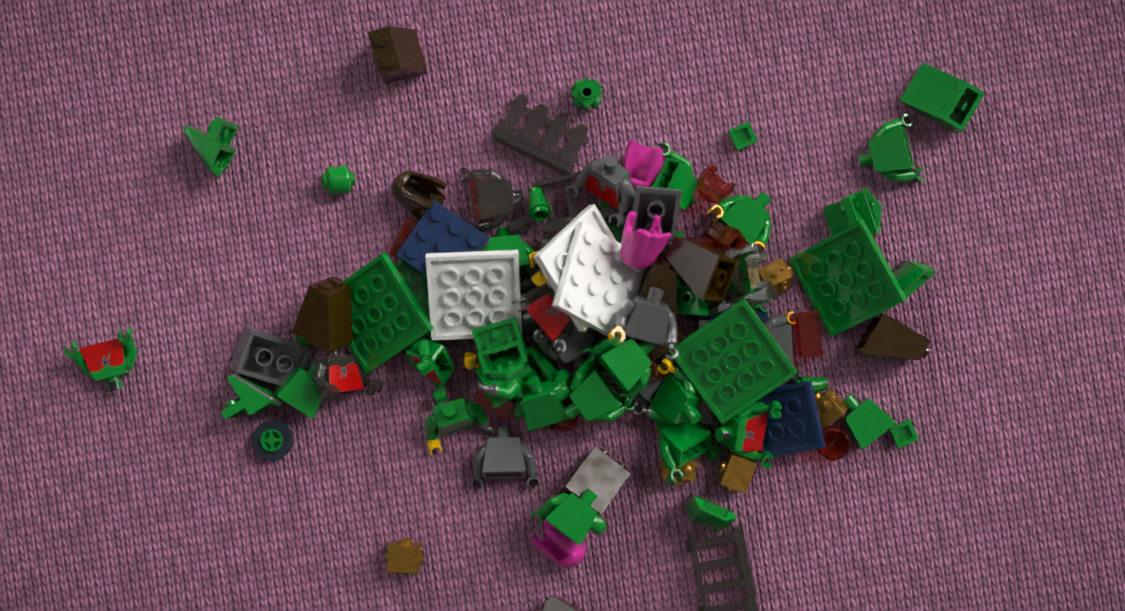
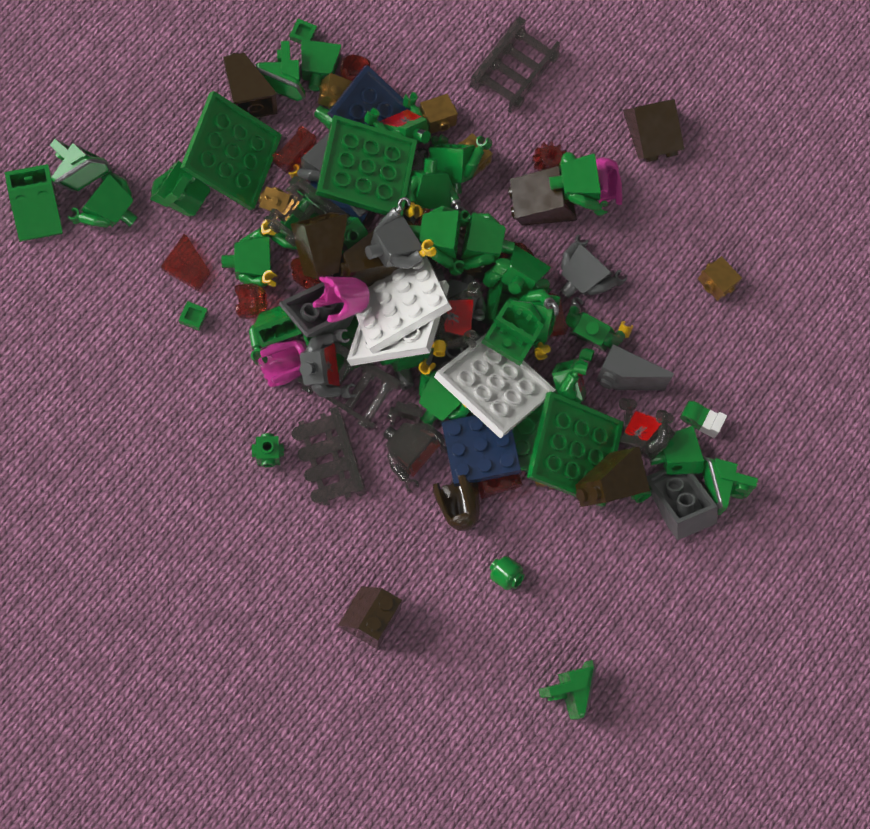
camera: 140 degrees left, 15 degrees down
(106, 359) = (803, 617): torso -> none
(264, 440) = (739, 437): black wheel -> none
(312, 435) = (703, 418): none -> leg
(398, 409) = (630, 372): none -> dark grey slope
(538, 206) = (384, 406): green cone -> none
(626, 520) = (547, 152): none -> clear red gear
(709, 513) = (483, 105): green slope -> none
(724, 235) = (280, 260): clear red leg -> none
(789, 169) = (186, 264): none -> clear red wing
(874, 380) = (283, 74): none -> green piece
(912, 275) = (186, 112): green slope -> none
(943, 155) = (77, 167): none -> green piece

